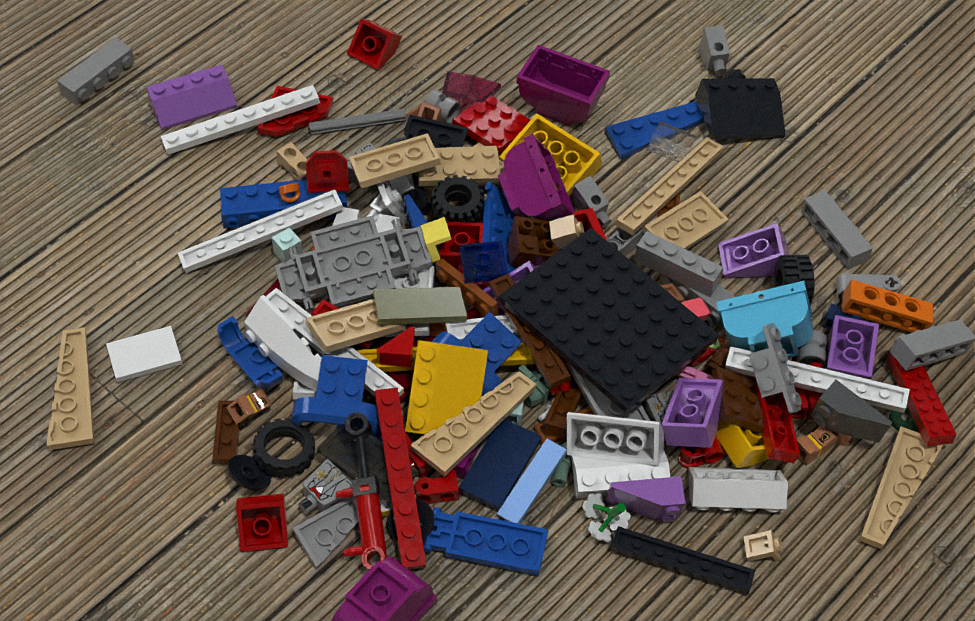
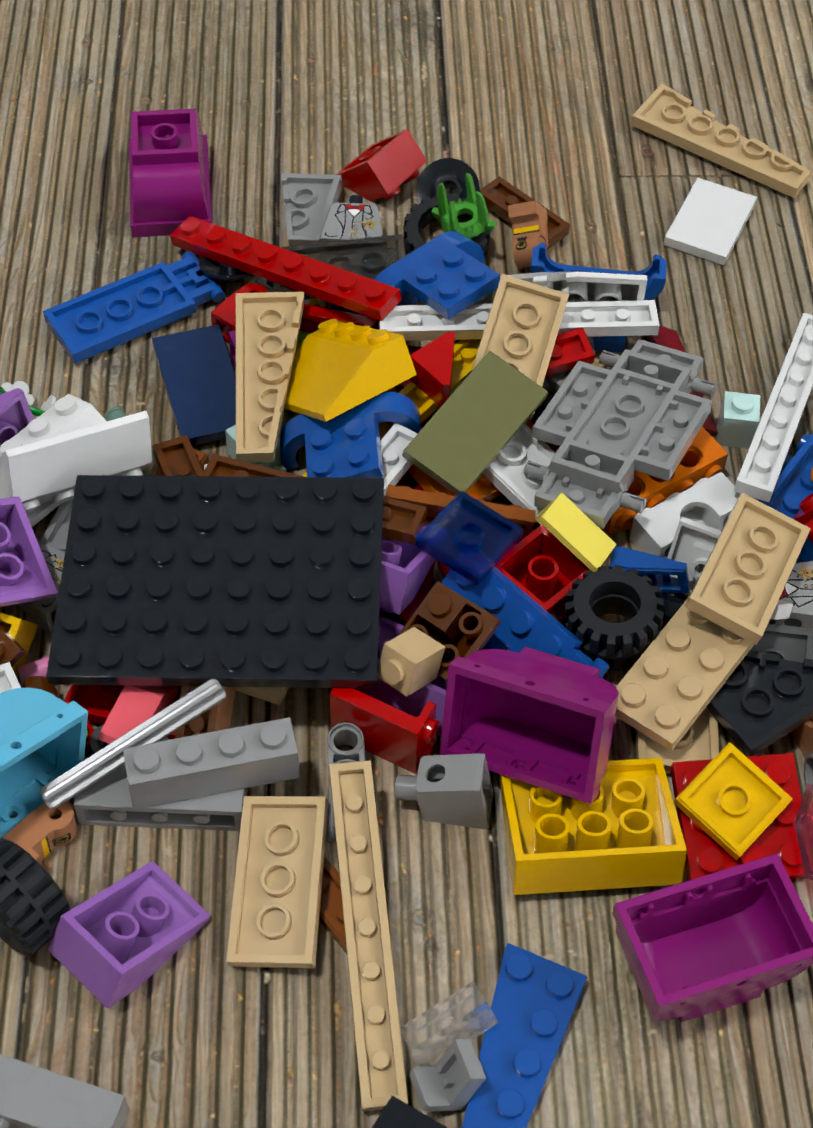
camera: 135 degrees right, 0 degrees up
(285, 432) = (473, 205): none -> bright green piece
(367, 496) = (297, 227): red piece -> none
(496, 120) = (732, 800): none -> yellow tile
(532, 482) = (141, 380): light blue tile -> none
(684, 124) = (451, 1081): none -> light grey bracket
(690, 288) = (150, 731): none -> light grey axle

